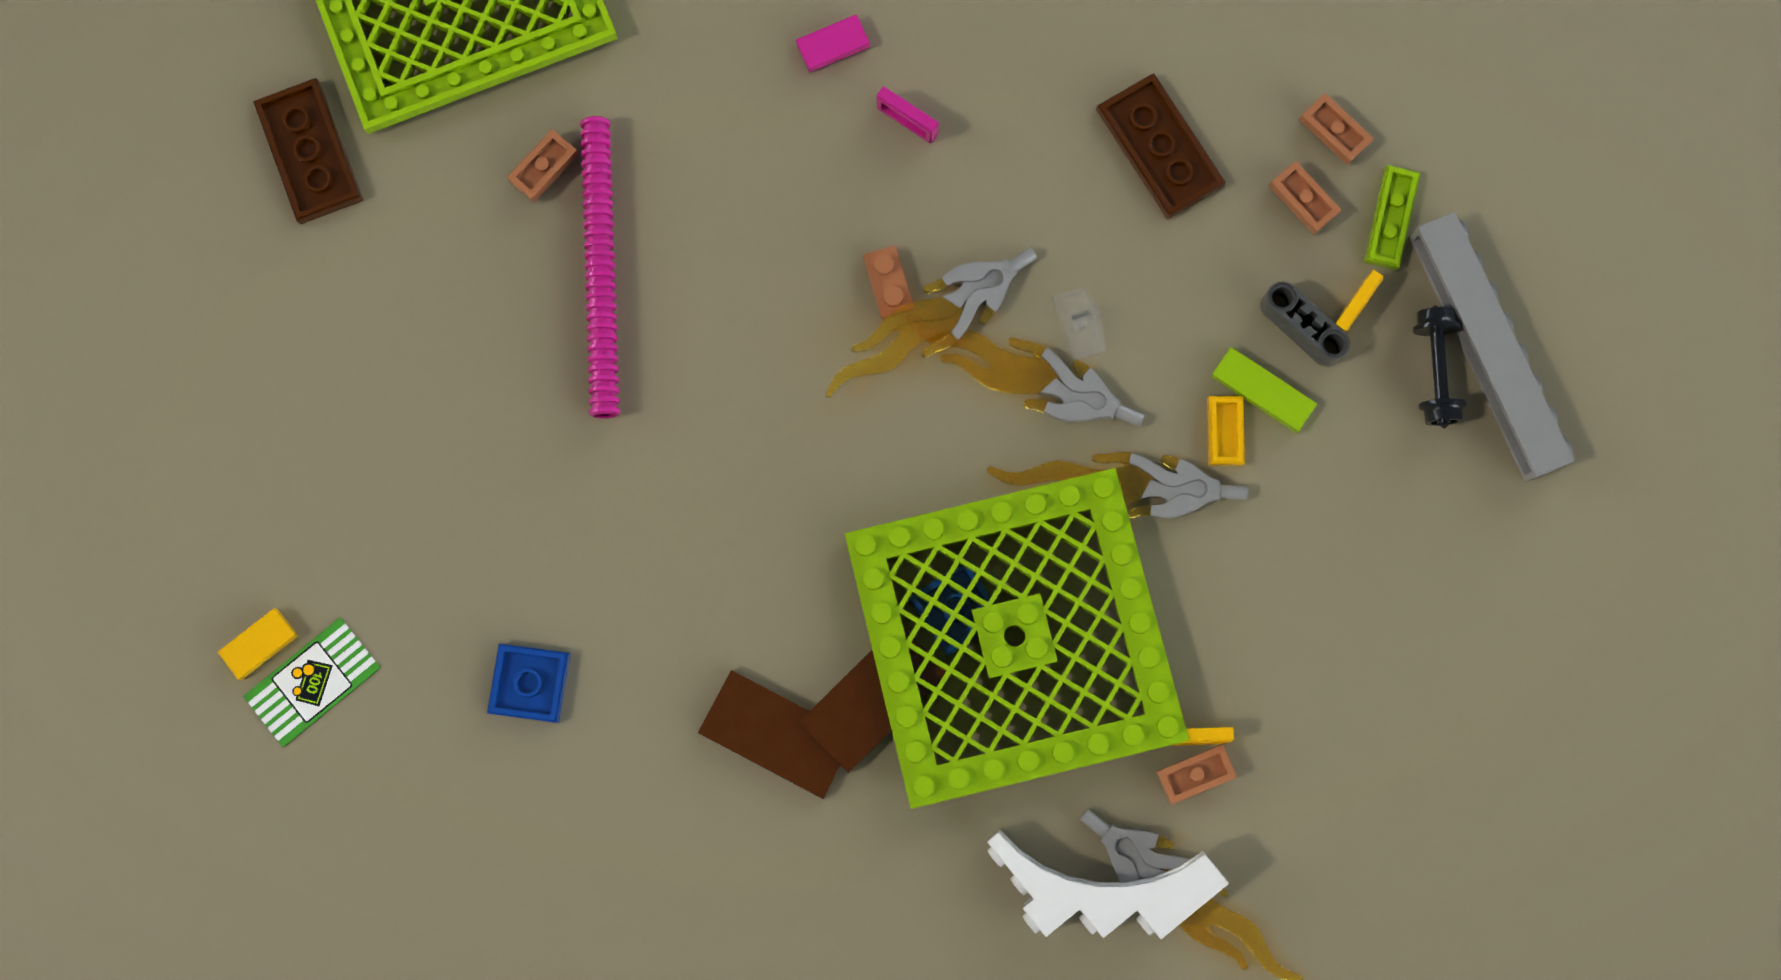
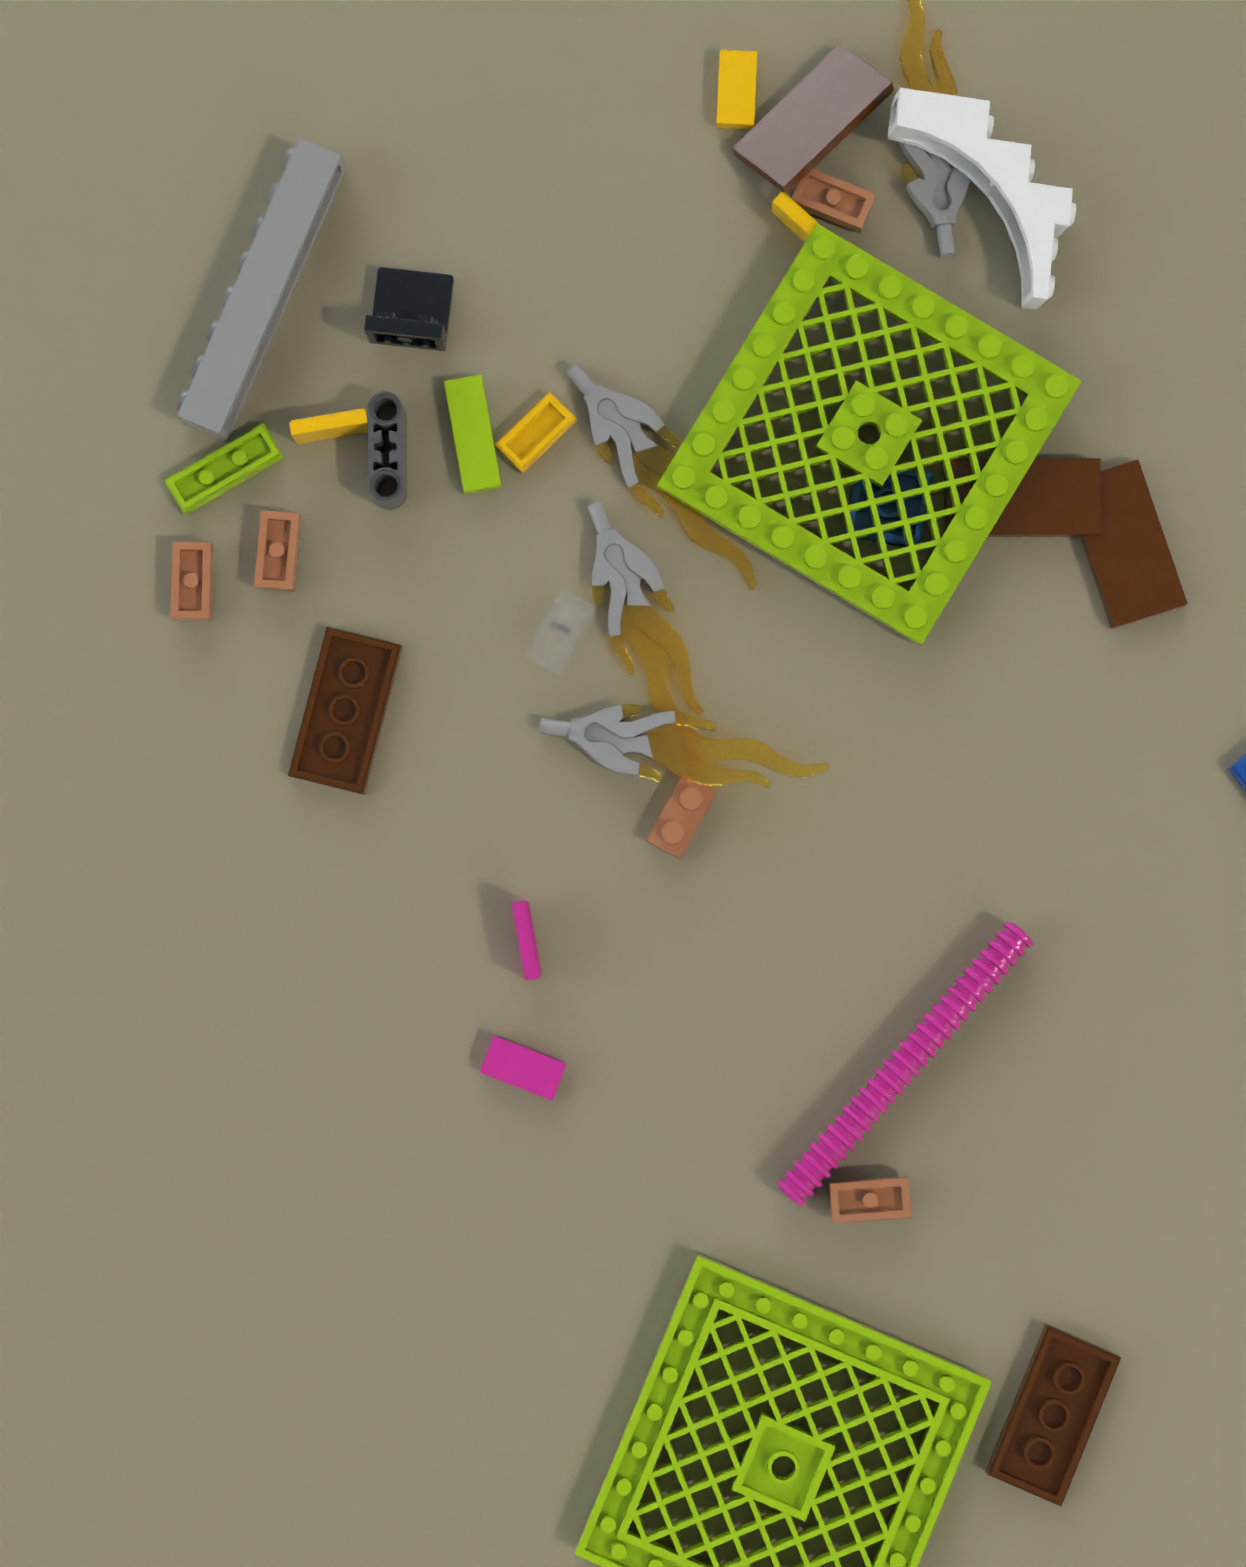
camera: 130 degrees left, 5 degrees up
(1265, 815) = (813, 119): none -> tile
(1335, 788) = (736, 89): none -> yellow tile
(1386, 428) = (410, 309): none -> black bracket
(1436, 323) = (354, 277): black piece -> none

